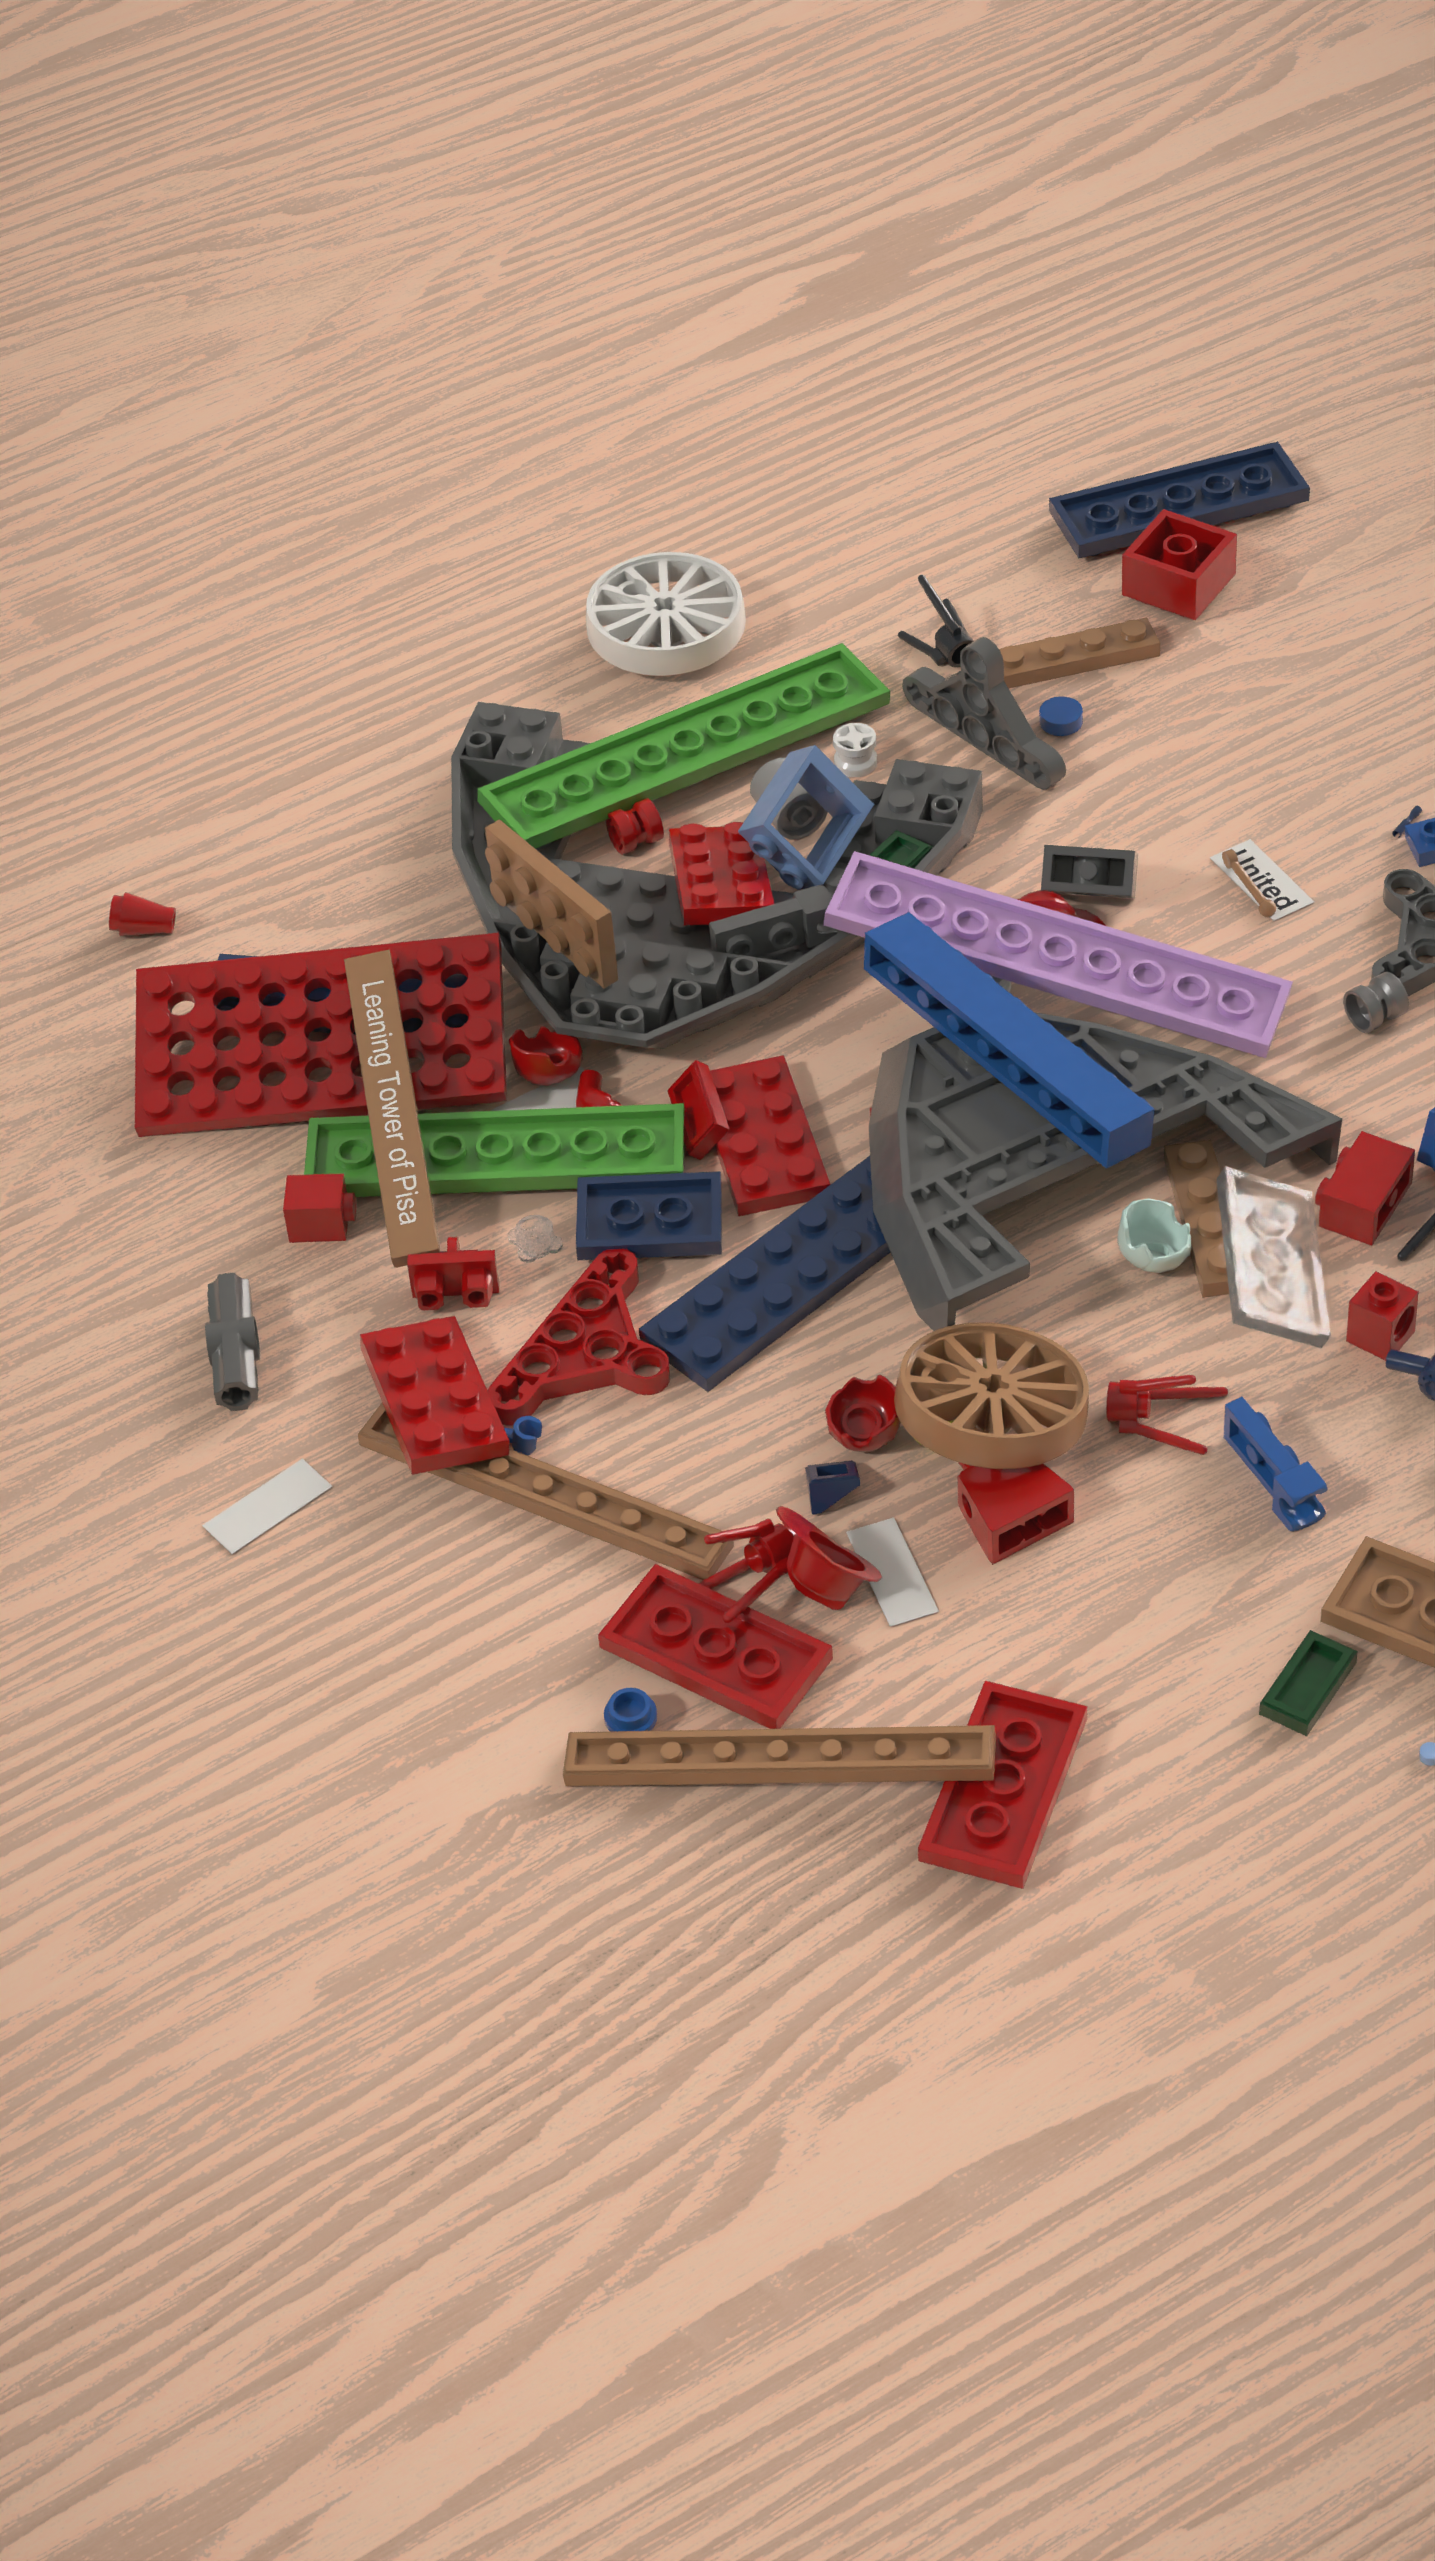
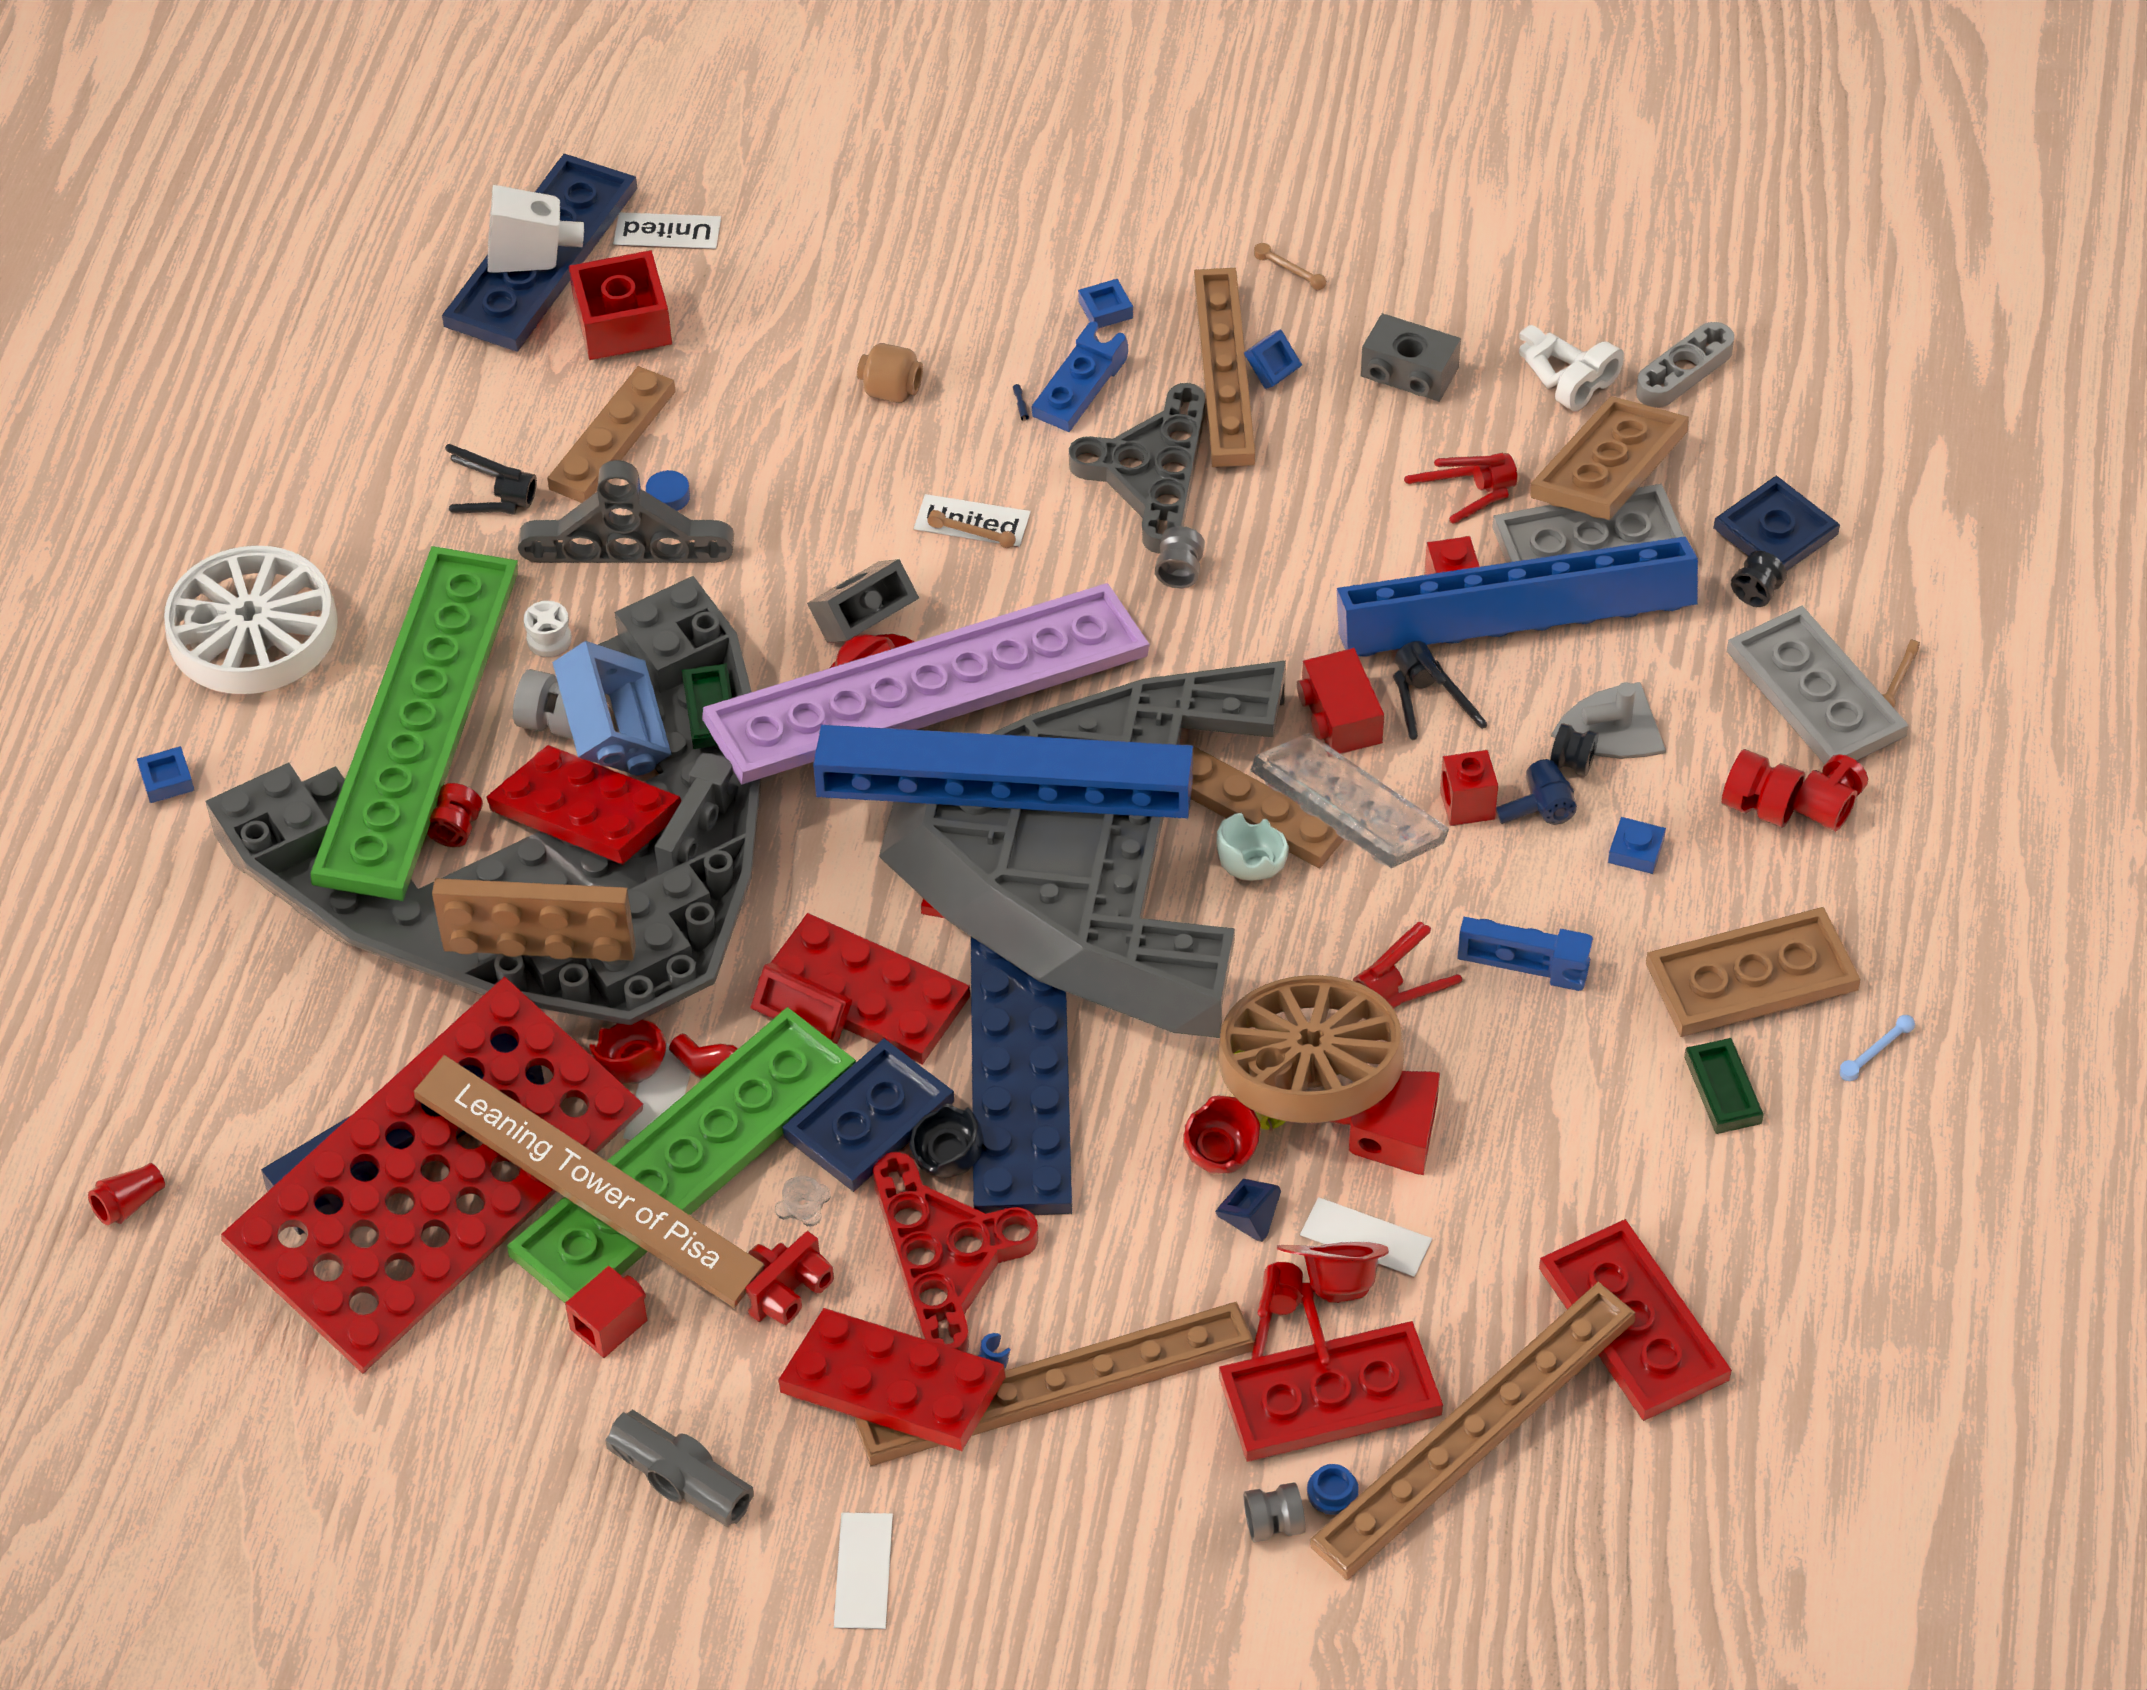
camera: 50 degrees left, 5 degrees up
(493, 678) = (165, 774): none -> blue plate
(565, 1691) = (1274, 1512): none -> flat silver wheel
(672, 1271) = (947, 1141): none -> black hair
(1162, 466) = (527, 231): none -> white torso
(1297, 543) = (667, 230): none -> white sticker
(1325, 735) = (890, 372): none -> medium nougat head

